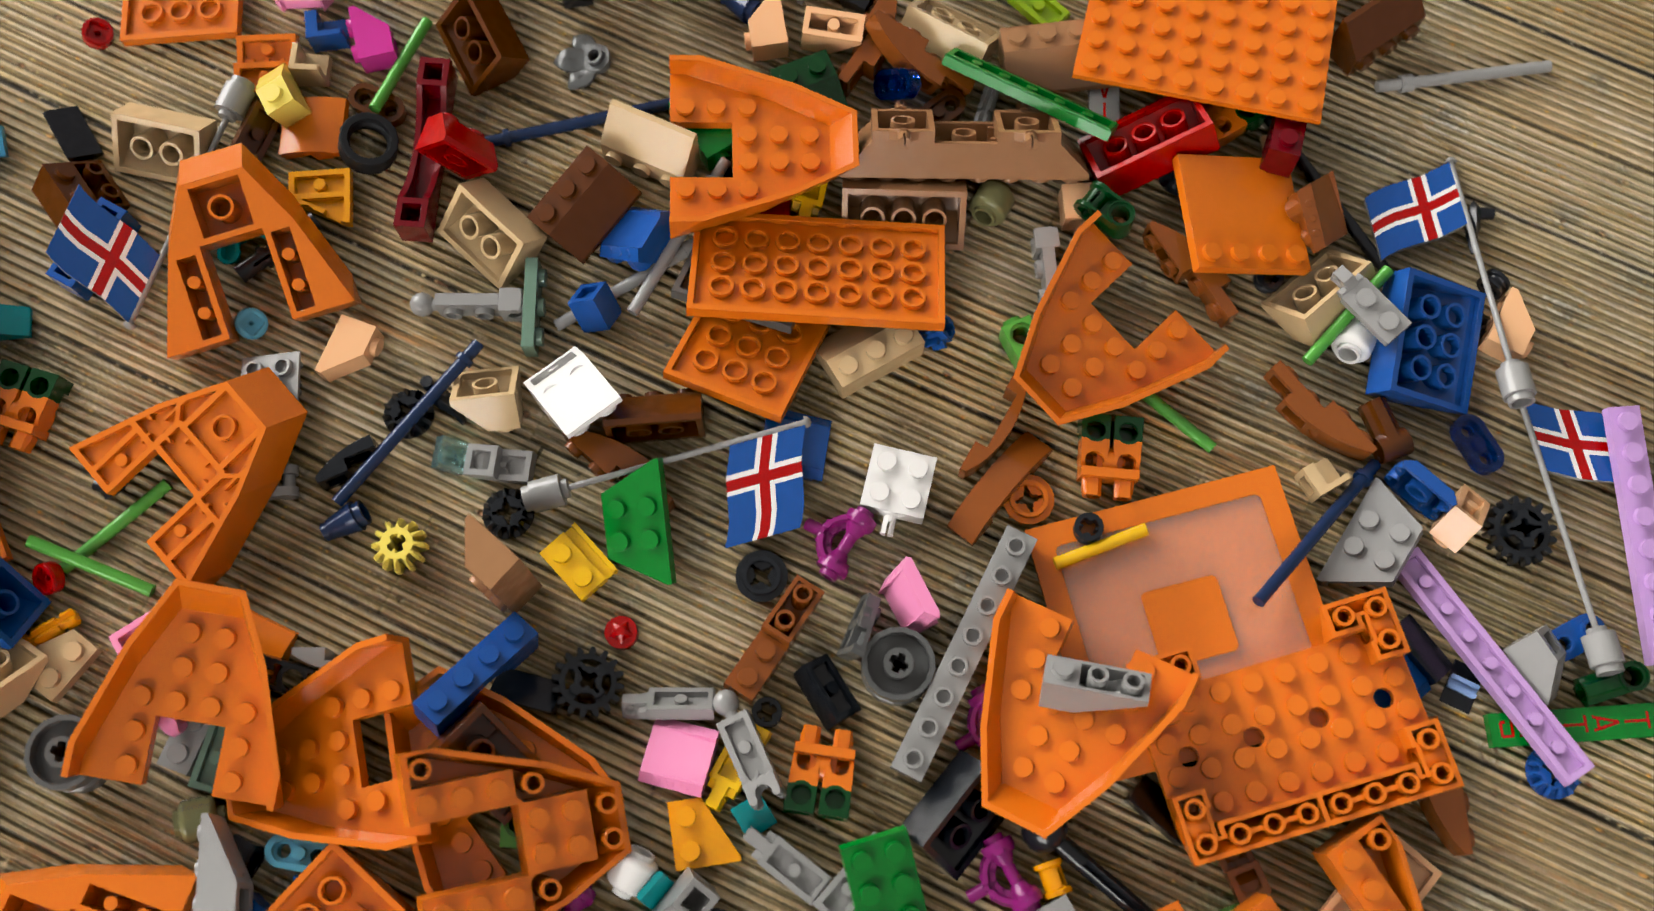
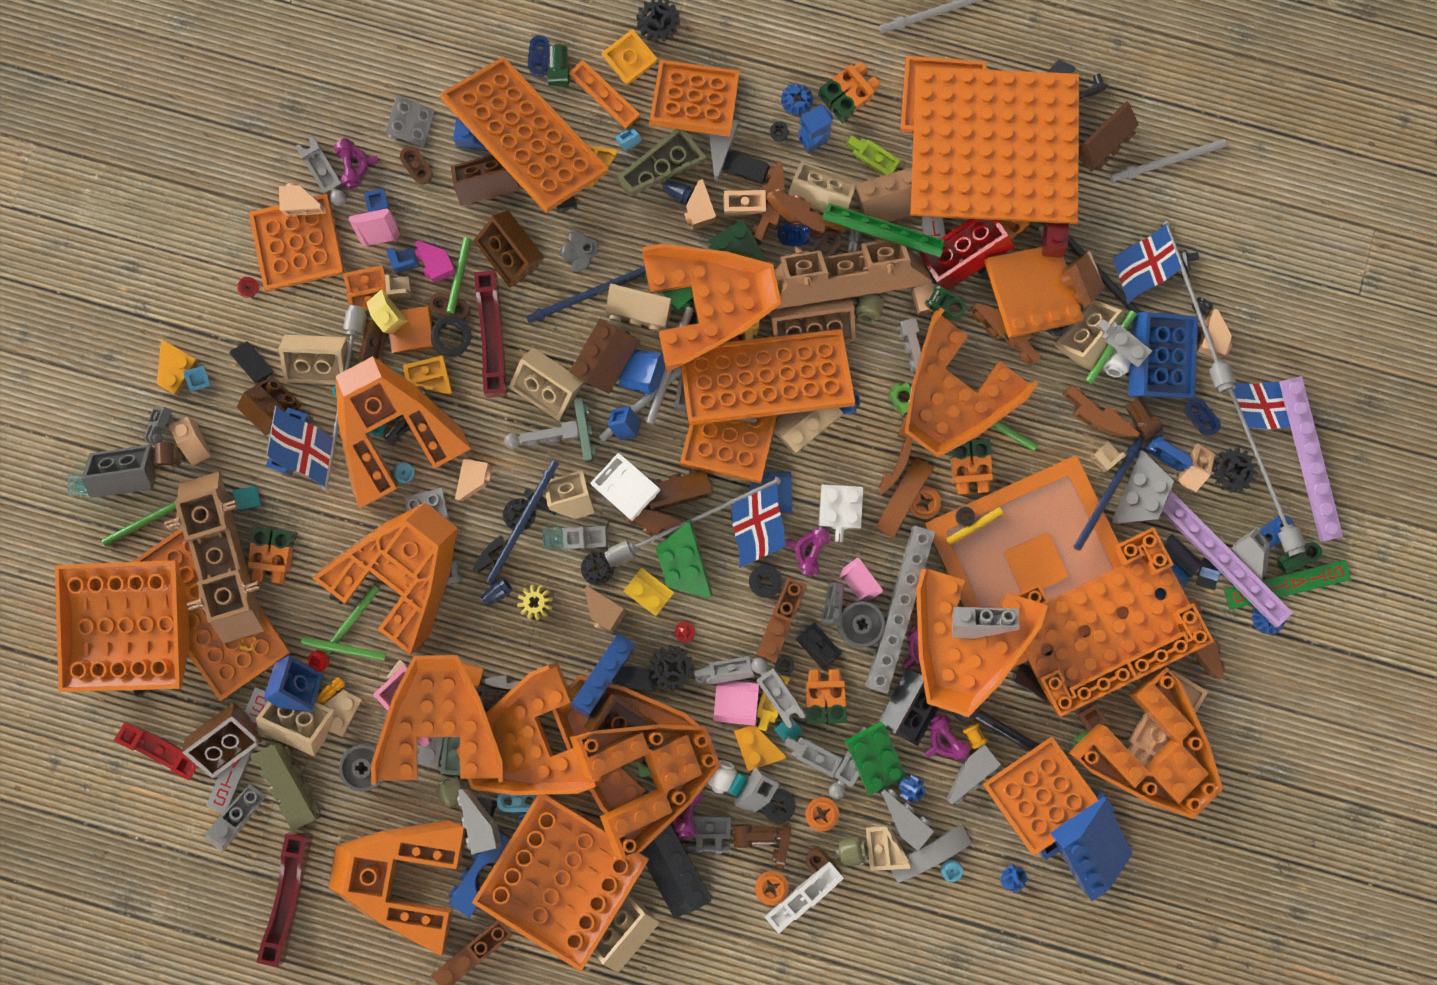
camera: 10 degrees left, 10 degrees up
(457, 147) = (512, 330): red slope -> none

